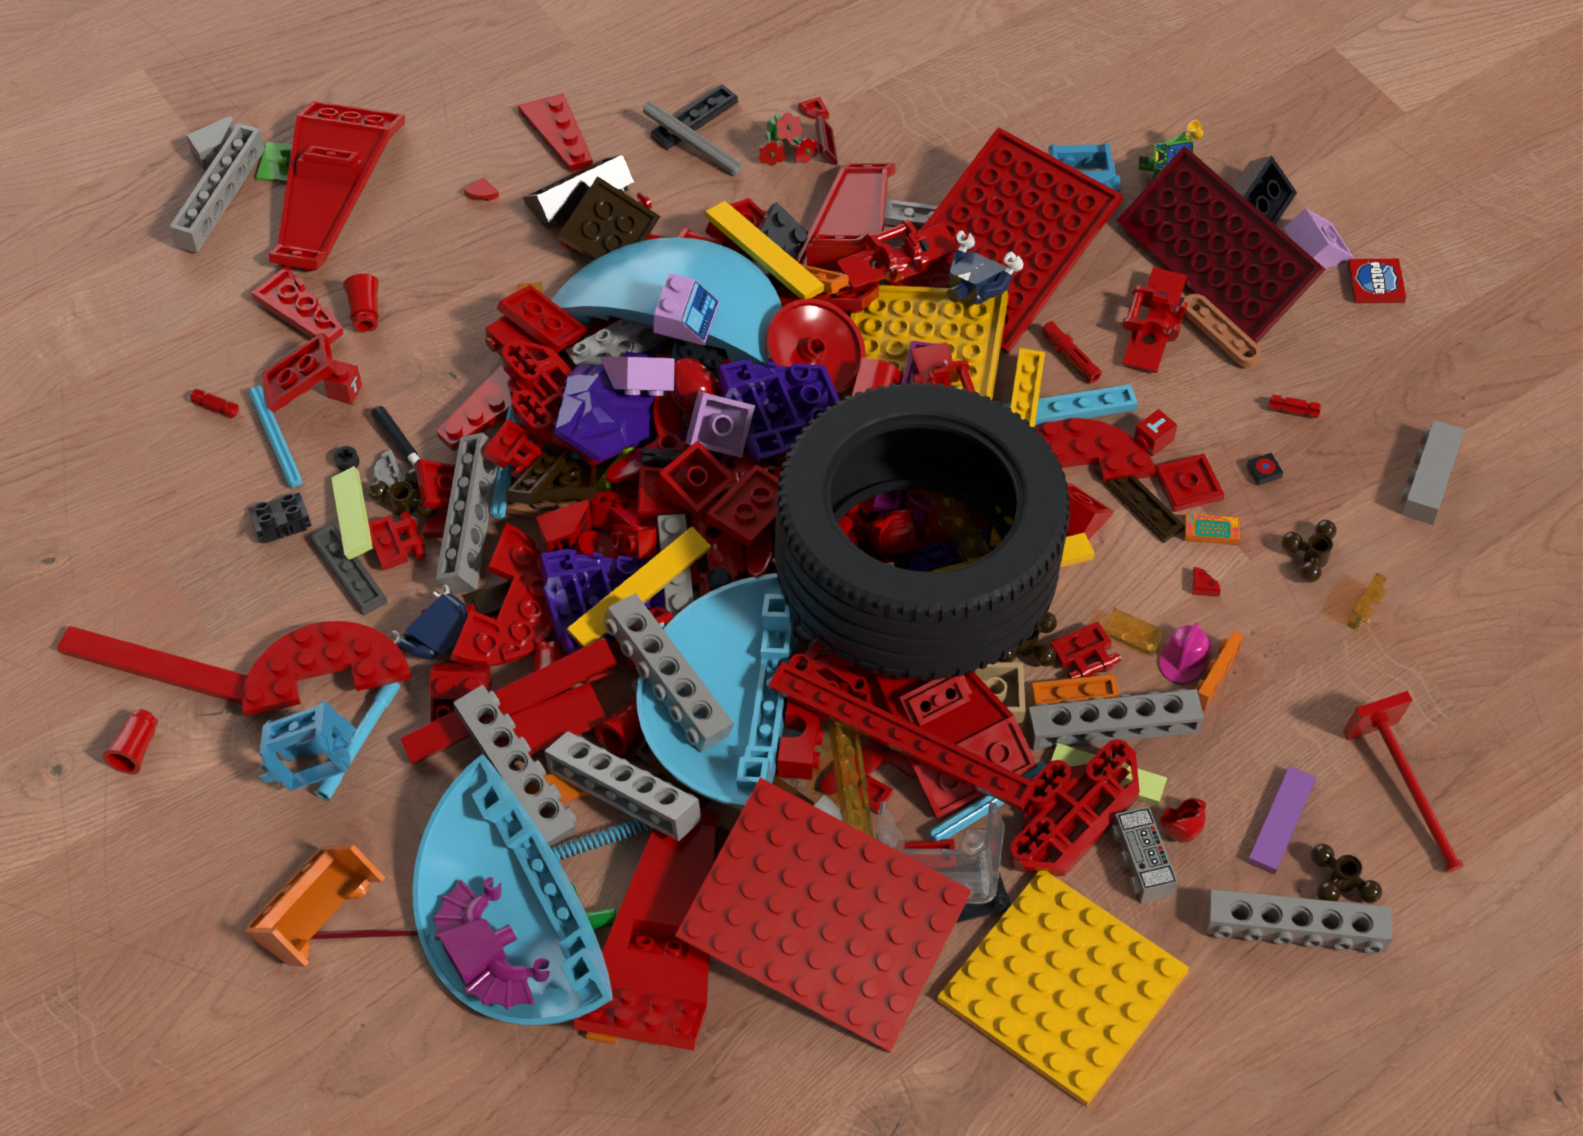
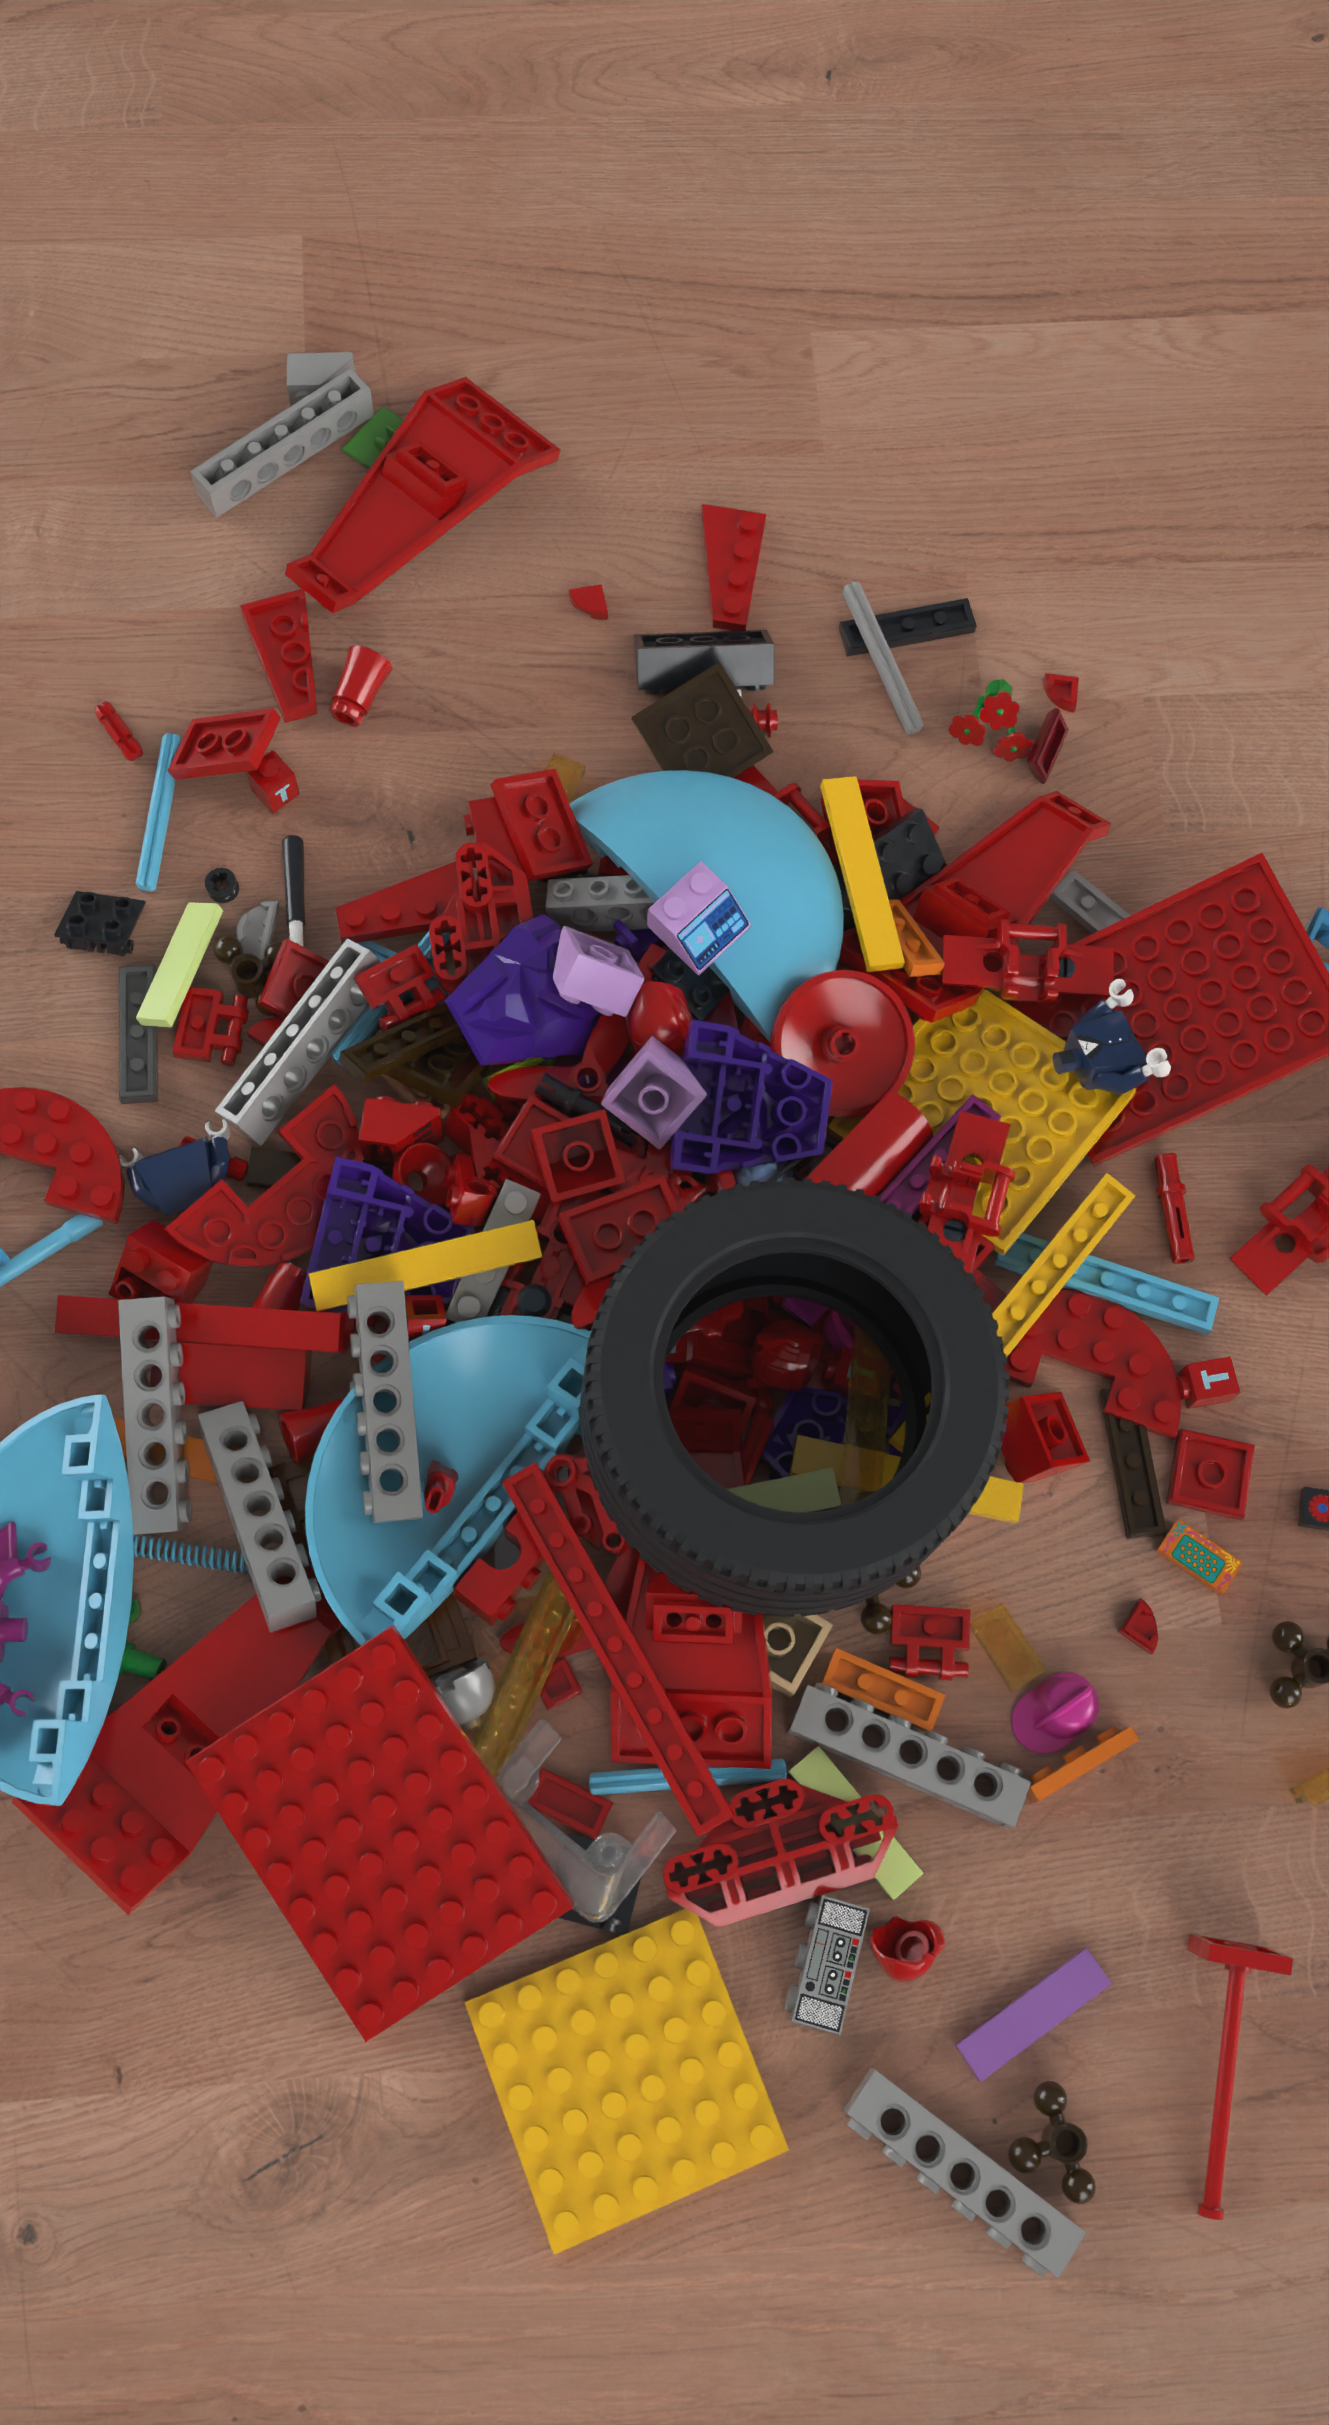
camera: 25 degrees right, 15 degrees up
(732, 708) = (438, 1486): none -> red piece

